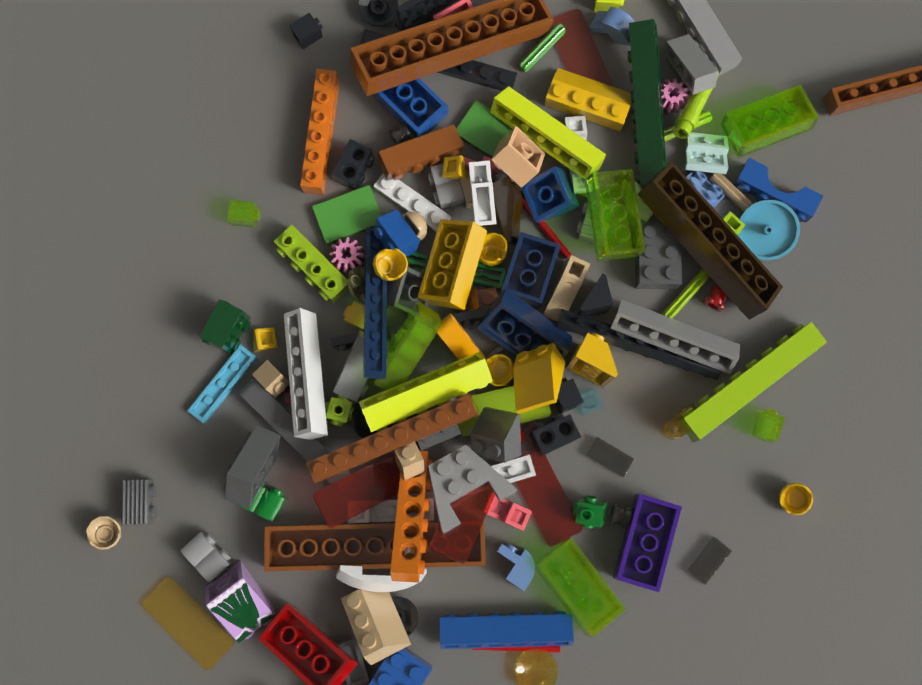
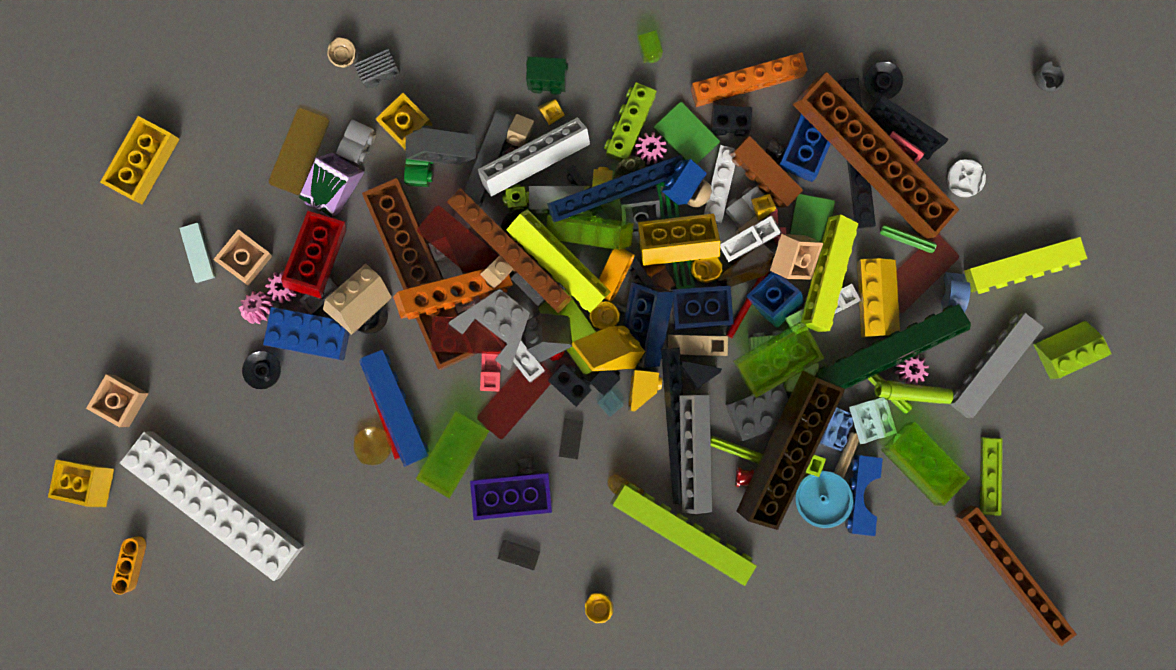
camera: 70 degrees right, 5 degrees up
(205, 496) = (402, 119): none -> yellow brick
(222, 384) = (500, 93): medium azure tile -> none
(306, 30) = (835, 29): black brick -> none
(375, 583) = (385, 266): white slope -> none
(390, 264) = (654, 186): yellow hair -> none
(523, 567) = (450, 402): medium blue brick -> none
(590, 511) = (517, 439): green brick -> none
(691, 64) = (947, 375): light grey brick -> none
(768, 425) = (652, 562): clear neon green brick -> none
(802, 66) = (991, 476): none -> lime tile

